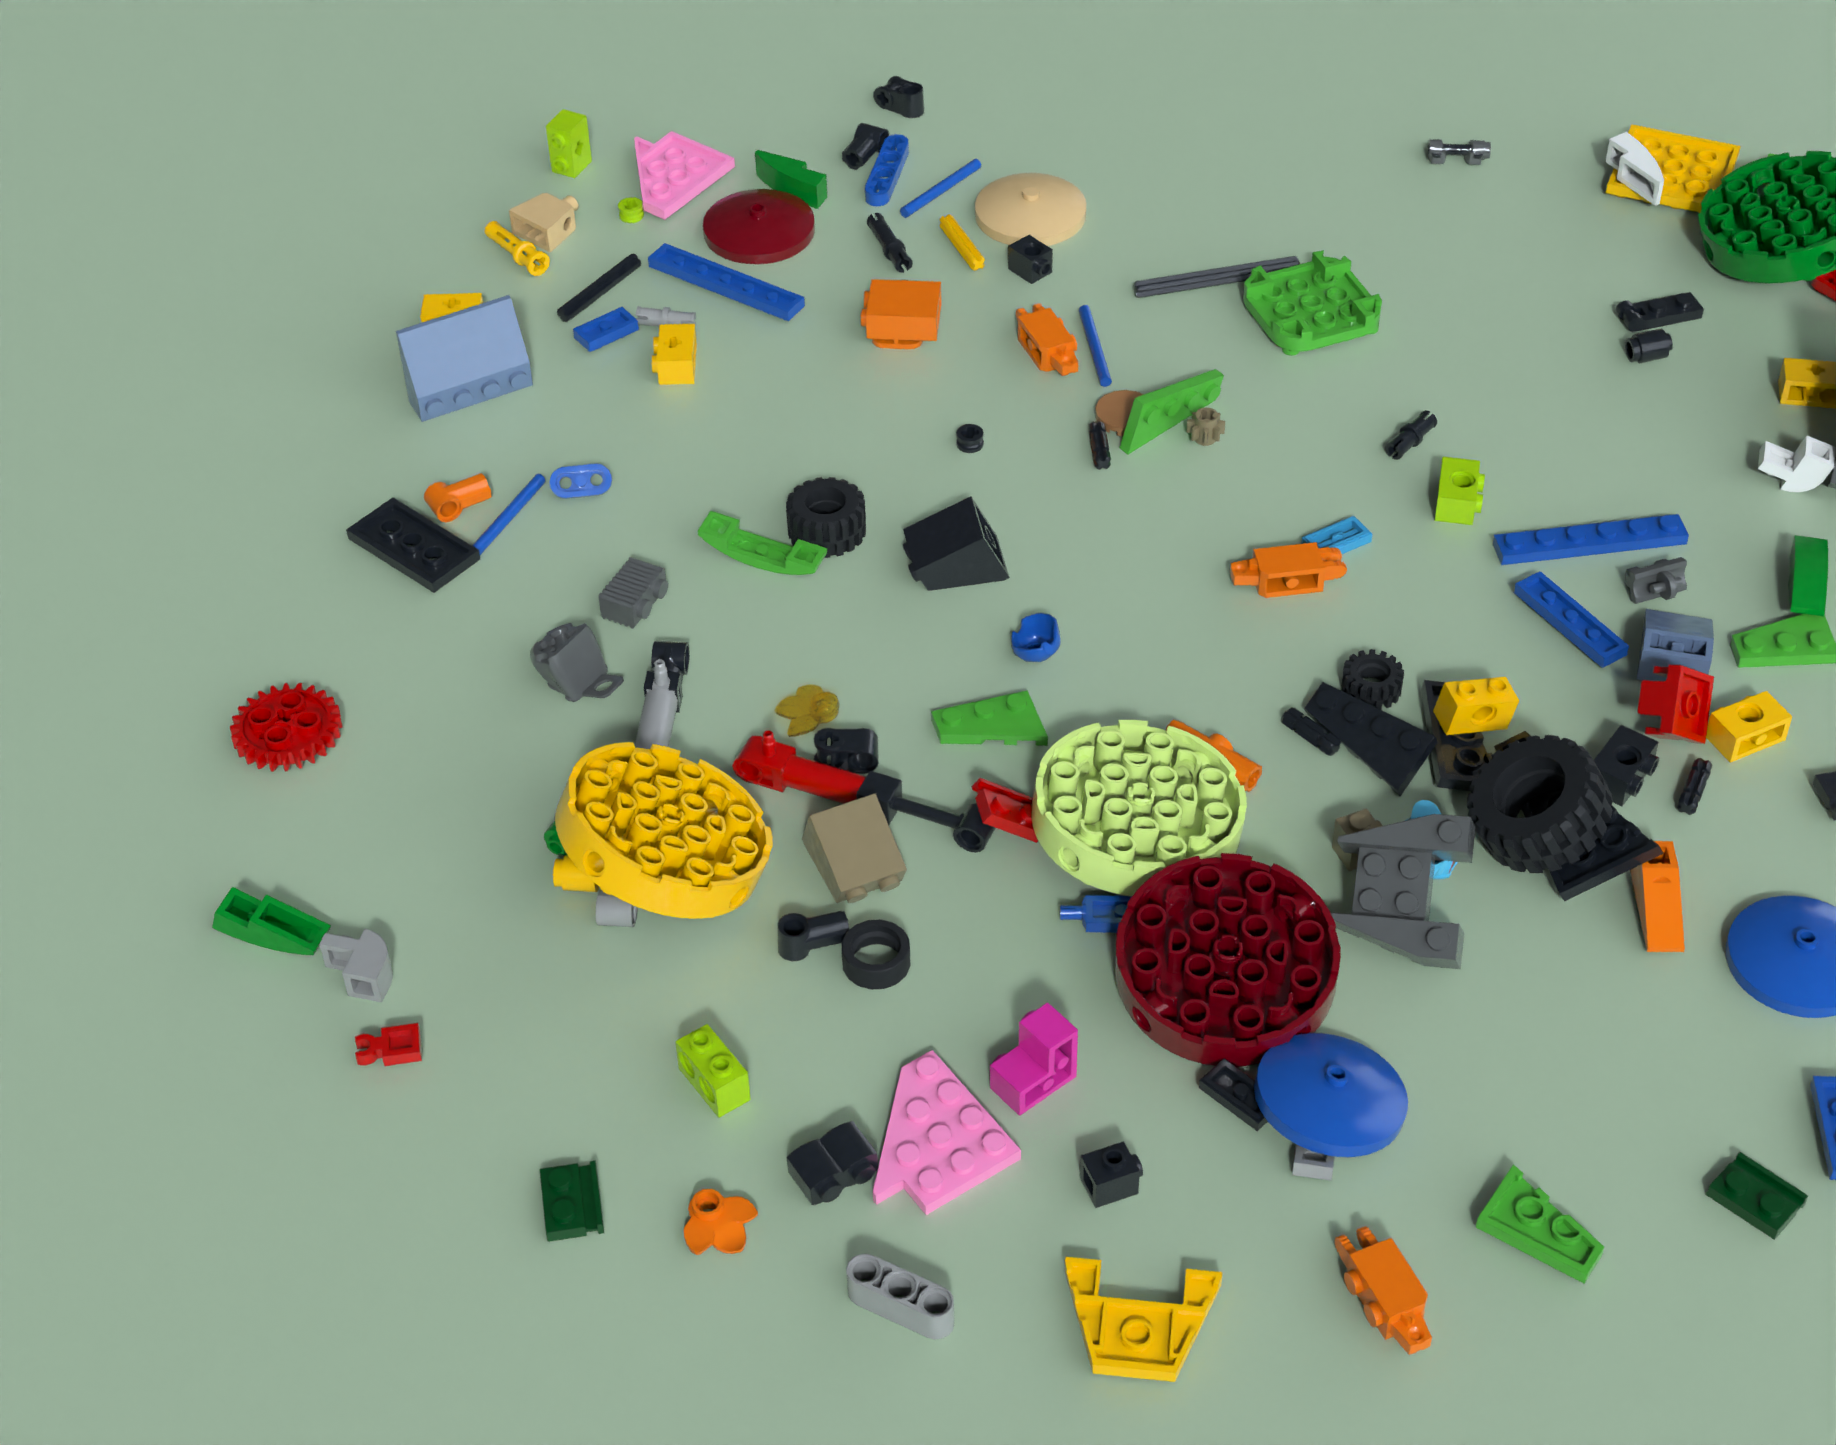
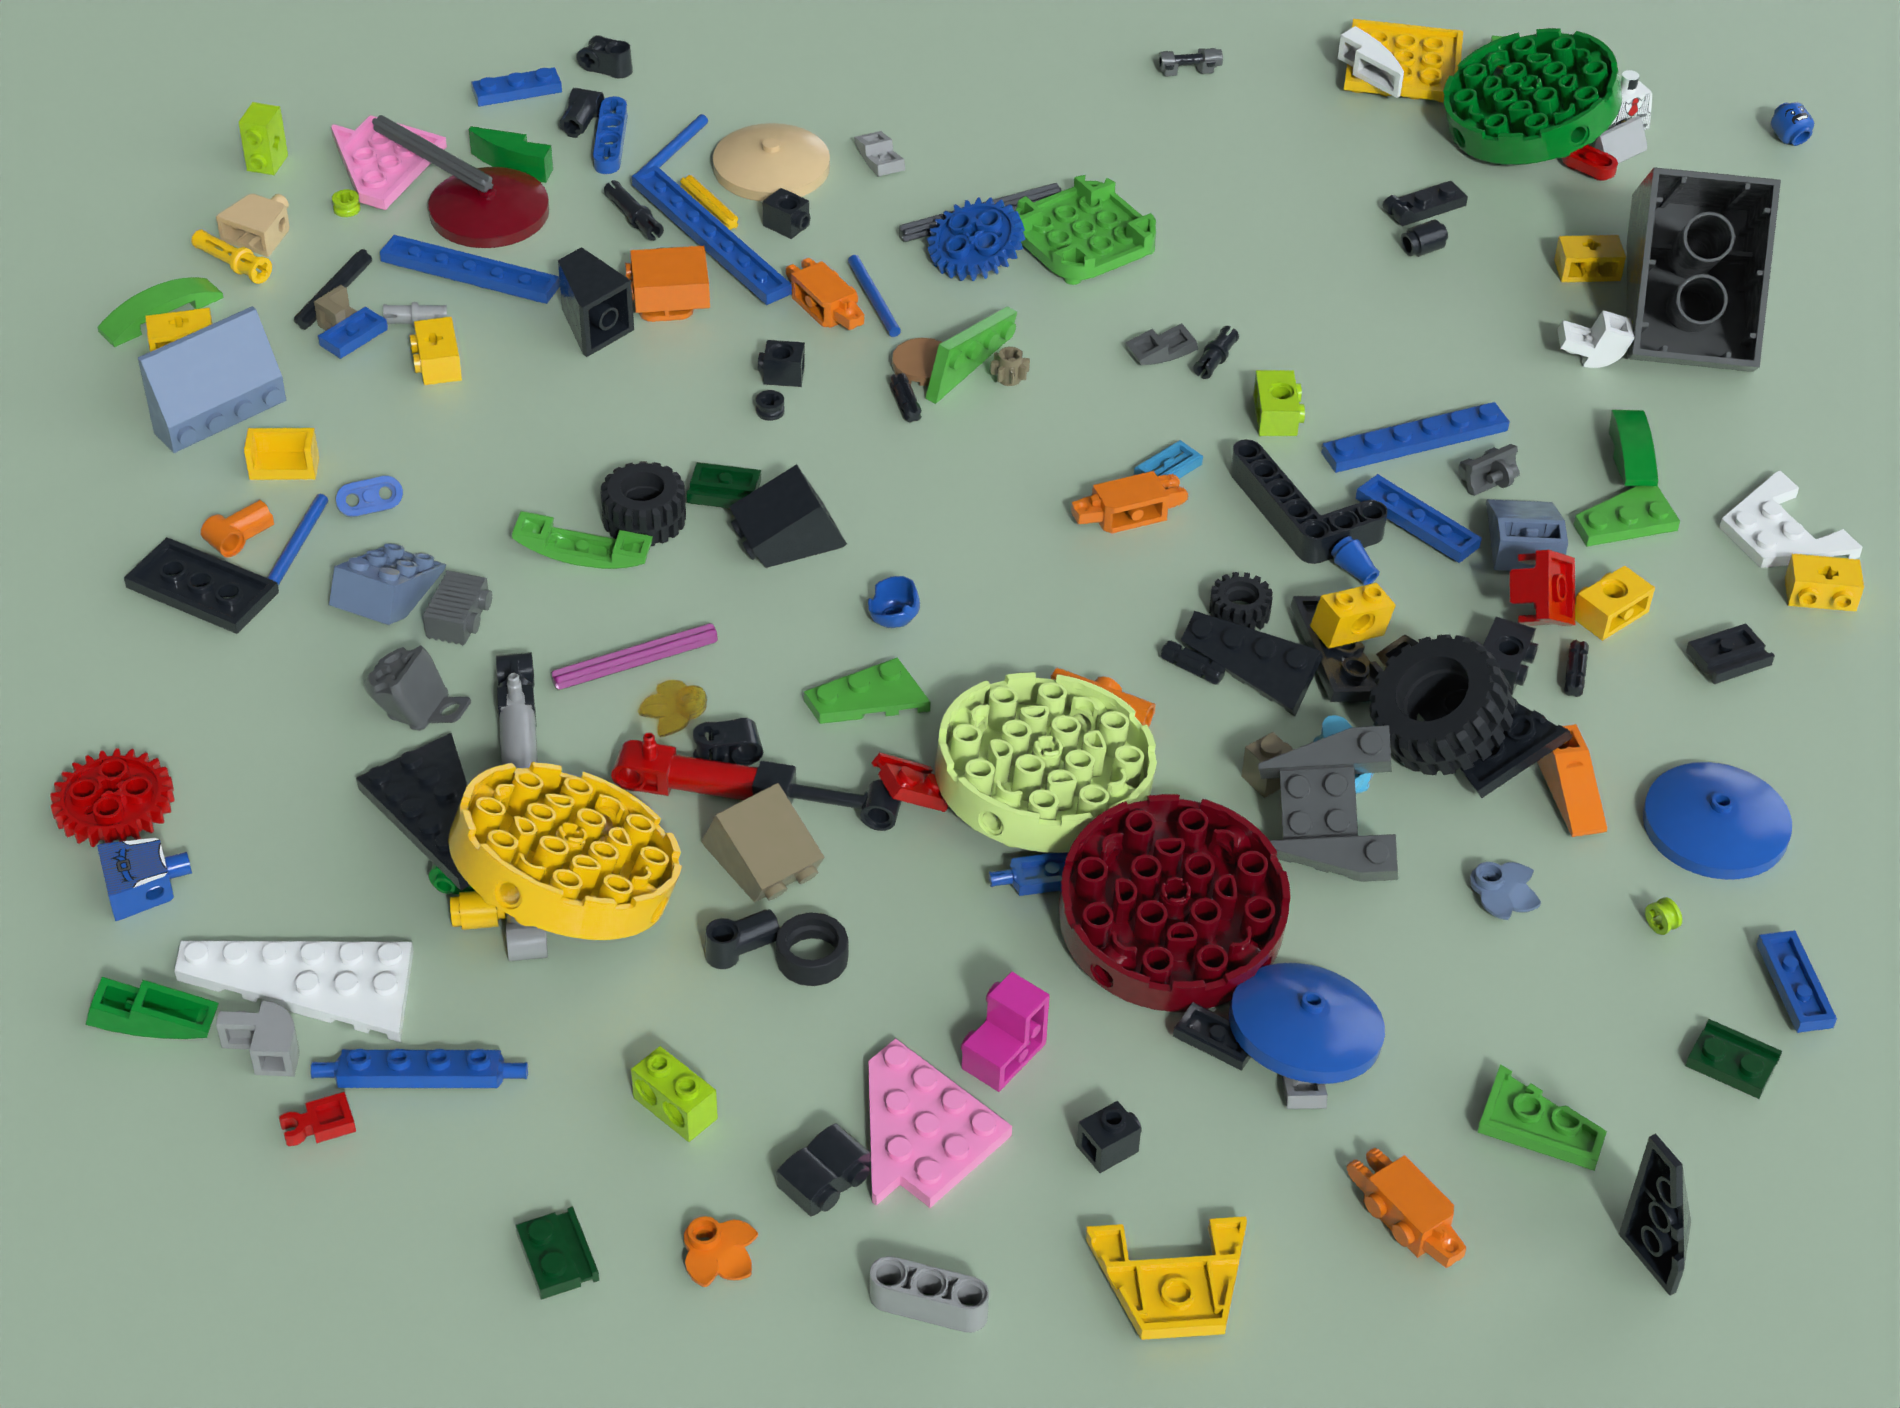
camera: 15 degrees left, 0 degrees up
(290, 800) = (139, 875): none -> blue torso
(424, 917) = (316, 979): none -> white wing
(444, 280) = (125, 321): none -> bright green slope
(492, 1012) = (419, 1069): none -> blue plate
(513, 433) = (281, 453): none -> yellow panel
(549, 755) = (422, 798): none -> black wing
(573, 562) = (384, 583): none -> sand blue slope
(593, 304) = (333, 308): none -> dark tan panel
(716, 172) = (433, 153): none -> dark grey axle
(783, 658) = (634, 656): none -> magenta axle
(812, 117) = (516, 86): none -> blue plate
(829, 323) = (594, 300): none -> black slope
(903, 507) = (721, 484): none -> dark green plate
(956, 273) = (712, 234): none -> blue plate
(991, 400) = (783, 363): none -> black brick
(1134, 211) = (879, 154): none -> light grey slope
(1203, 301) = (976, 239): none -> blue gear
(1350, 425) = (1161, 348): none -> dark grey slope
(1457, 621) = (1293, 516): none -> black beam
(1496, 652) = (1353, 558): none -> blue cone
(1564, 993) = (1504, 888): none -> sand blue plate
(1630, 1339) = (1659, 1215): none -> black wedge
(1719, 1043) = (1663, 916): none -> lime bush

